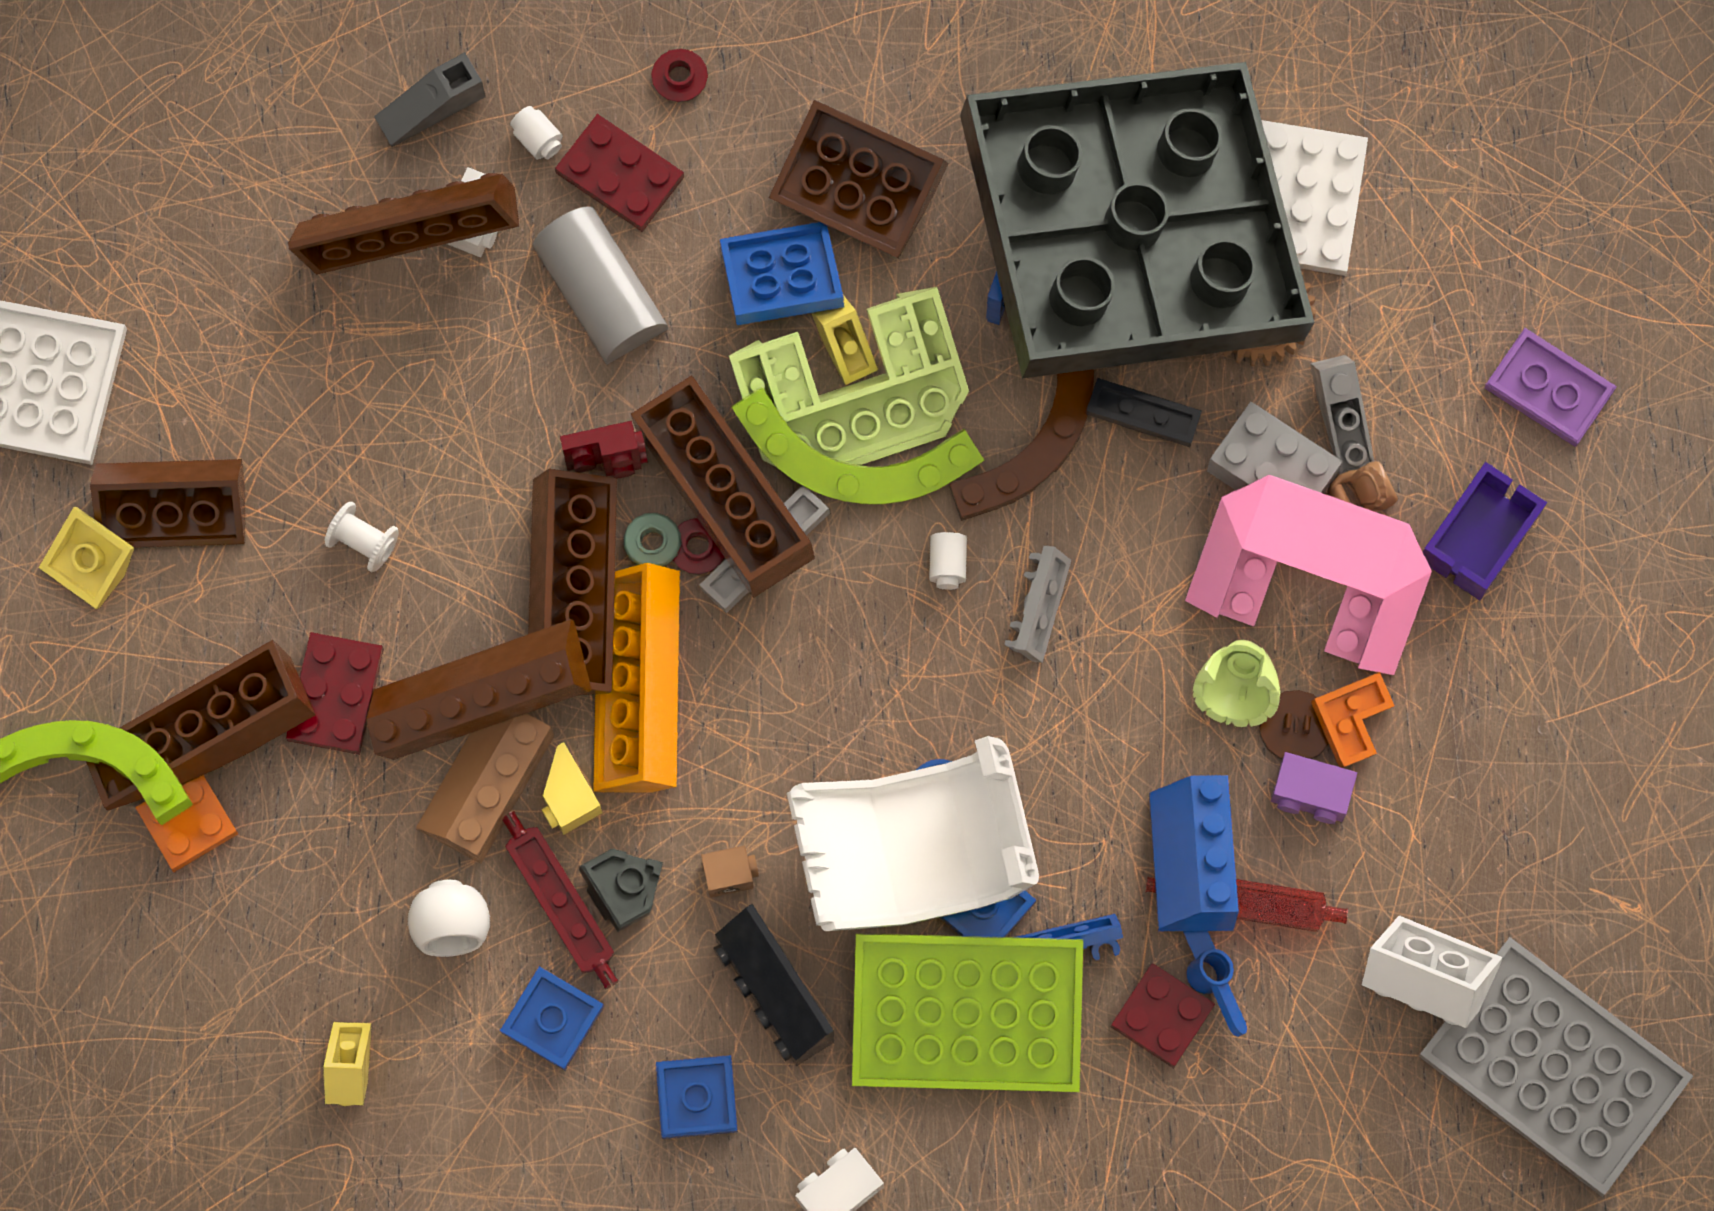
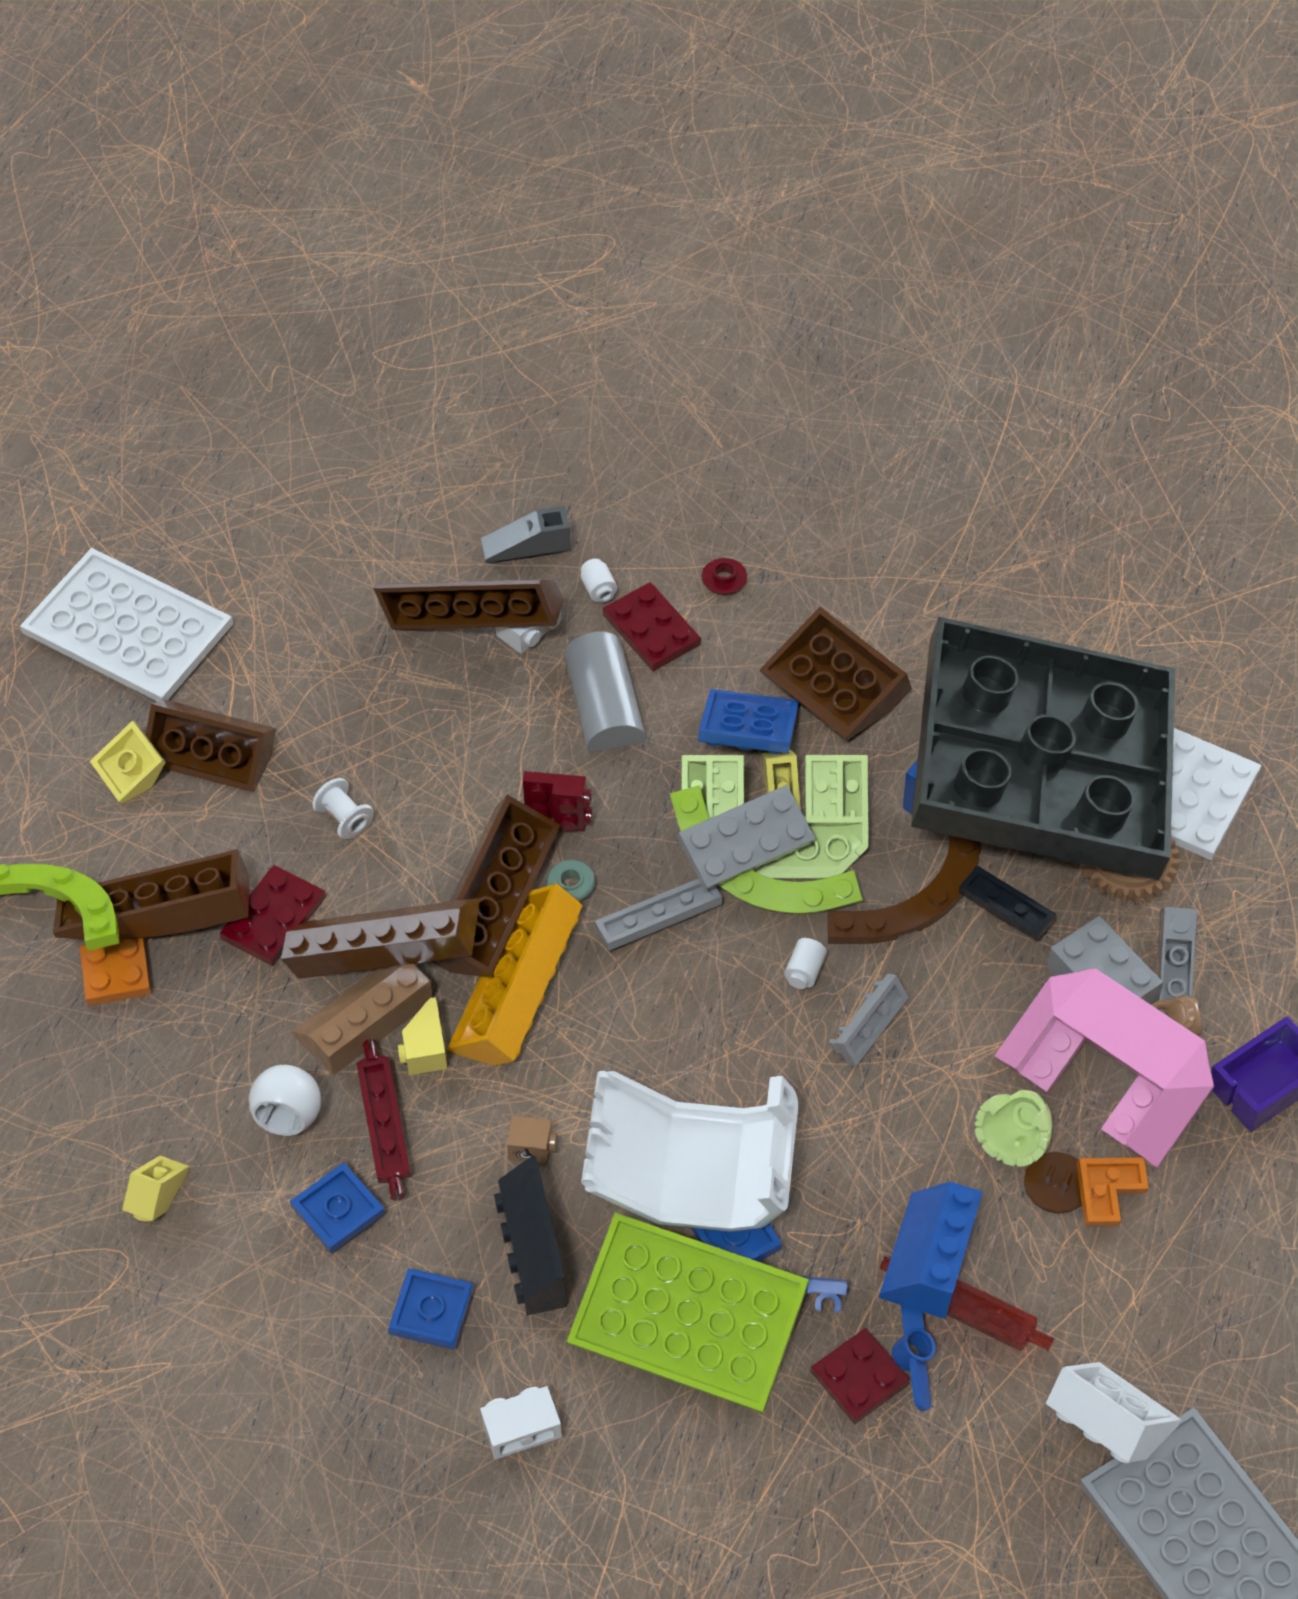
camera: 20 degrees right, 20 degrees down
(621, 886) = (438, 1124): pearl dark grey plate -> none
(692, 562) = (602, 908): dark red piece -> none
(723, 486) = (641, 852): reddish brown brick -> none
(834, 432) = (745, 837): none -> light grey plate
(1313, 788) = (1056, 1231): medium lavender brick -> none

